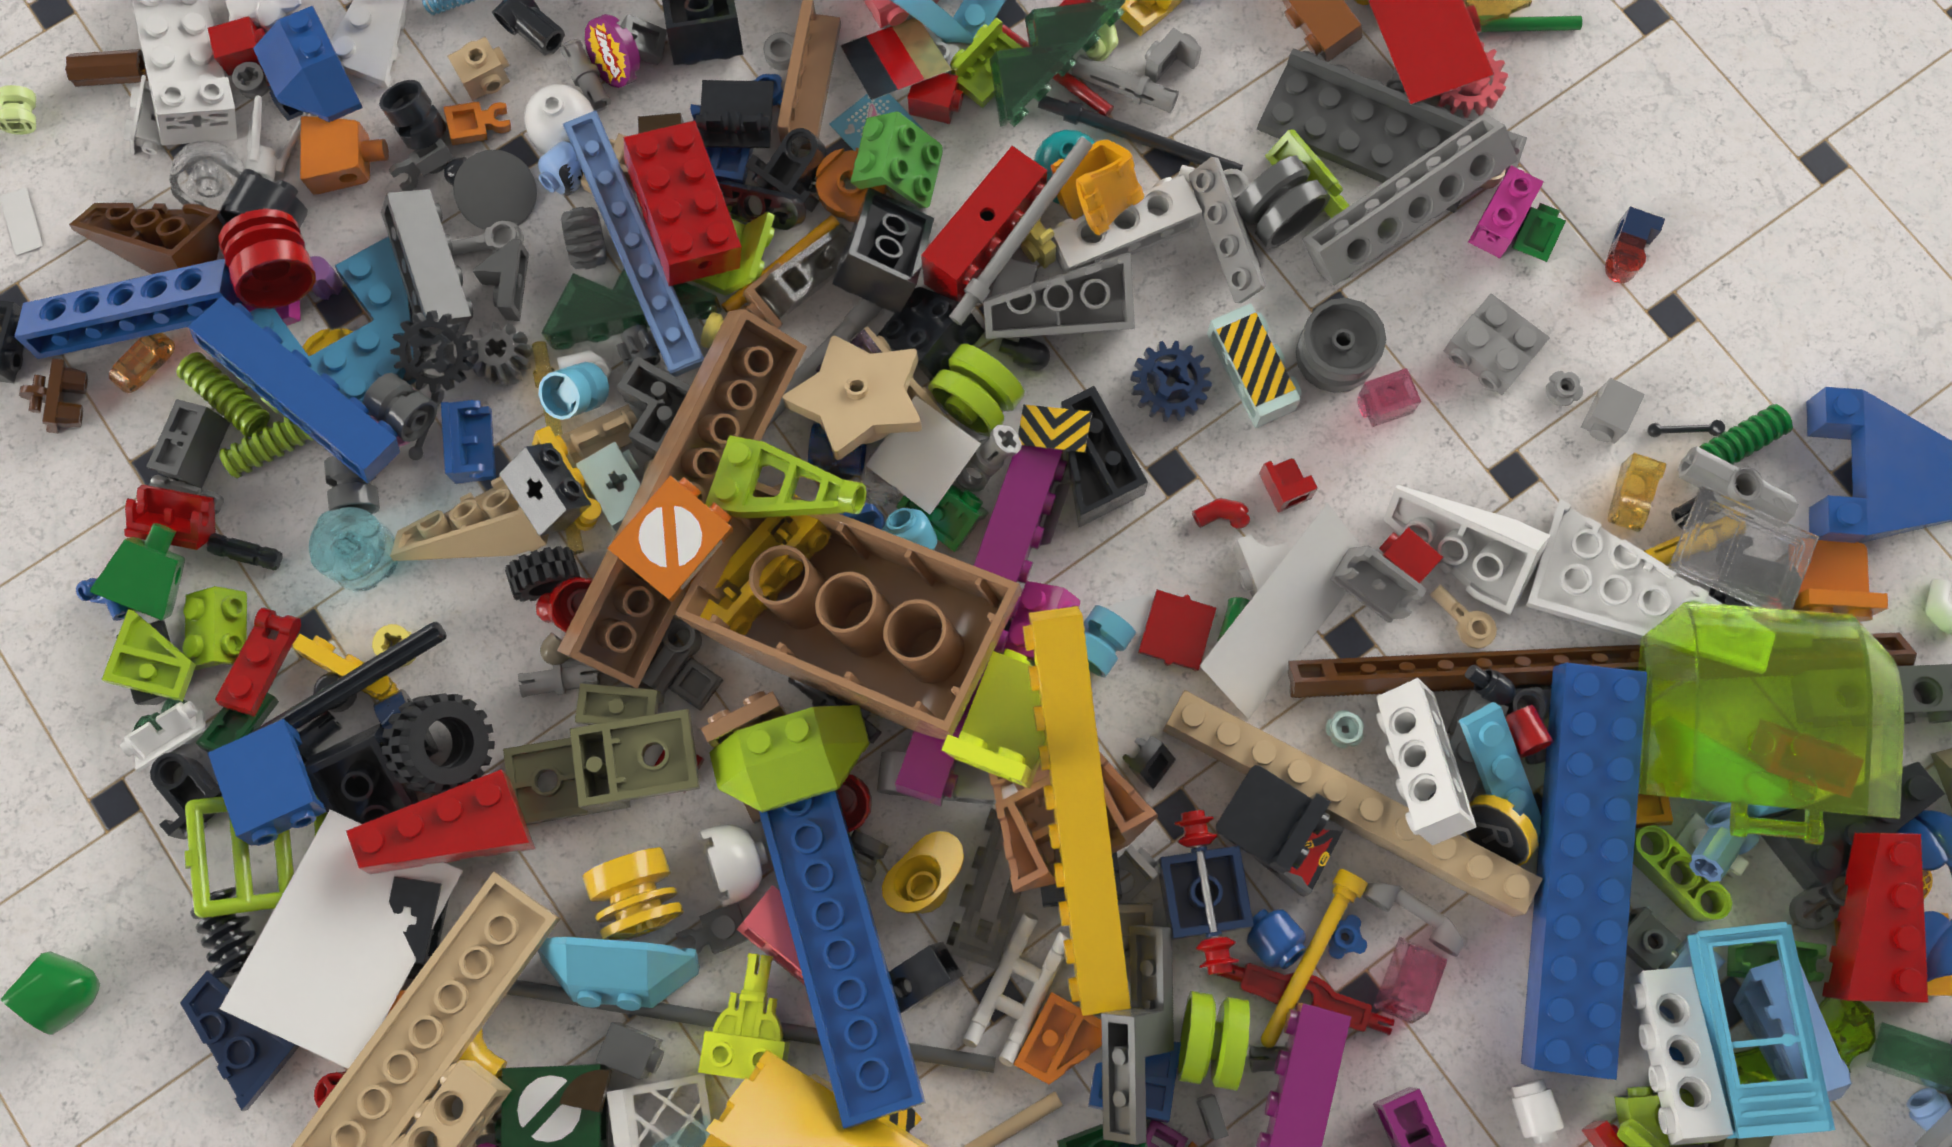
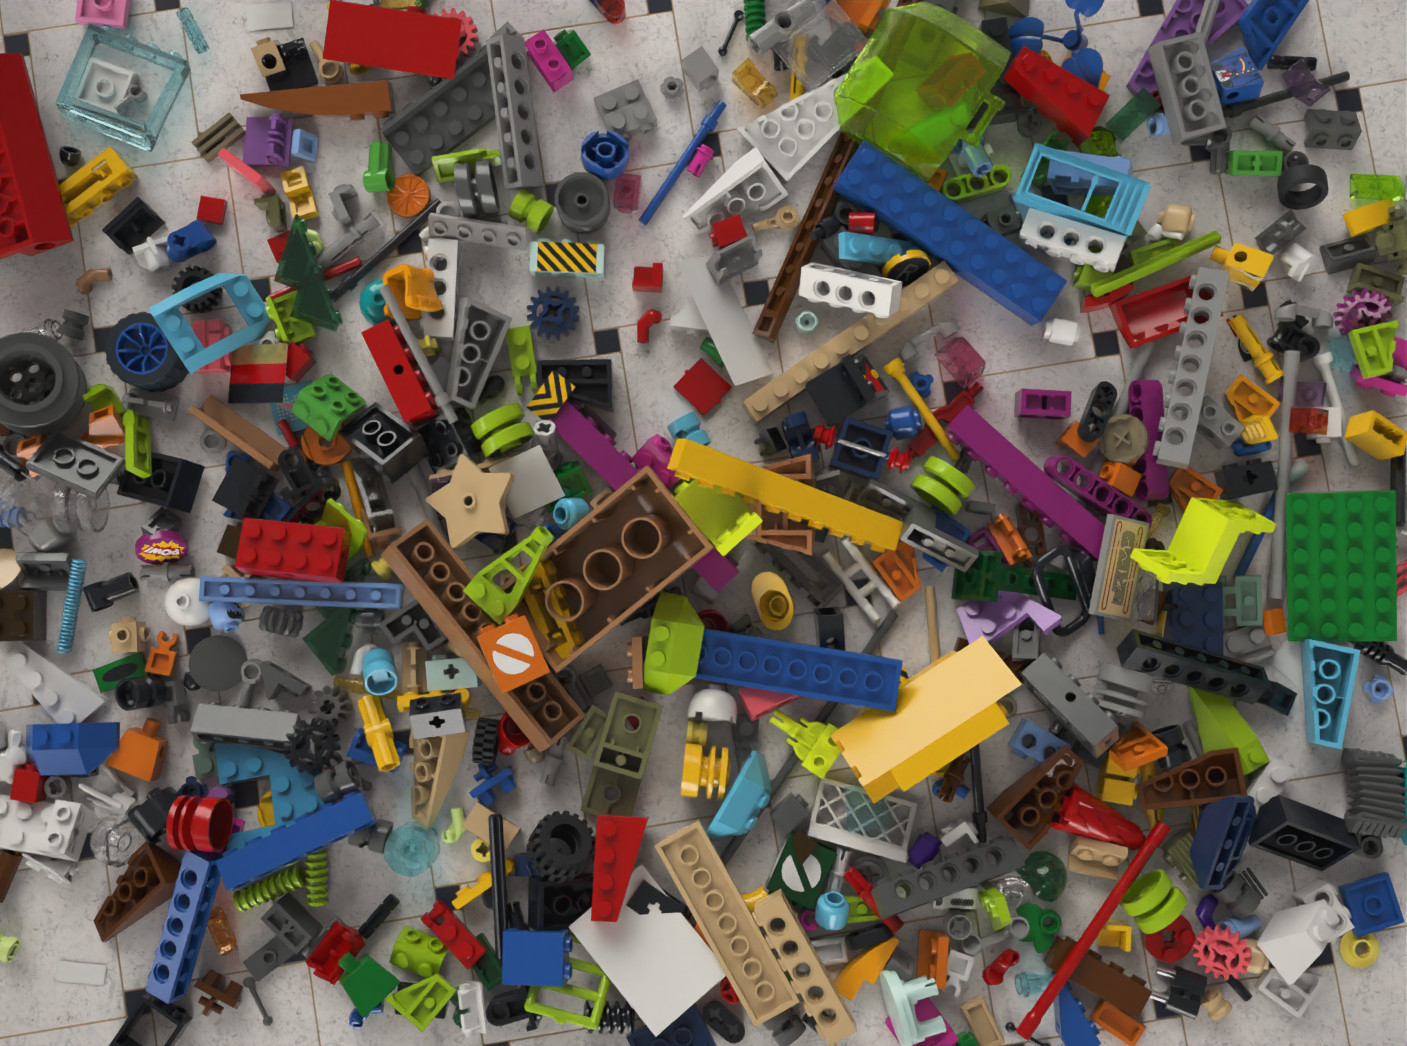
camera: 70 degrees left, 10 degrees up
(88, 430) = (248, 983): none -> dark grey hinge
(127, 436) = (268, 958): none -> dark grey plate
(277, 1100) = (728, 1017): none -> black beam
(313, 230) = (192, 783): none -> dark blue plate
(360, 235) = (205, 762): none -> sand green plate
(409, 596) = (455, 830): none -> yellowish green arm
(434, 662) = (478, 824): none -> tan hinge
(437, 84) = (128, 667): none -> green tile
(474, 606) = (503, 778): none -> blue hips
(490, 428) = (378, 732): none -> yellow piece
(685, 859) = (697, 732): none -> light yellow wheel
(837, 132) = (287, 433): none -> red piece
(1094, 368) = (522, 357): none -> lime hinge
(1177, 795) = (799, 436): none -> dark blue piece
(1226, 128) = (409, 196): none -> orange wheel
(1233, 79) = (379, 173): none -> bright green piece
(1292, 287) = (528, 209): none -> lime wheel
(1421, 341) = (605, 155): none -> blue cylinder
(1489, 473) = (700, 160): none -> dark pink pin
(1543, 460) = (708, 125): none -> blue bar

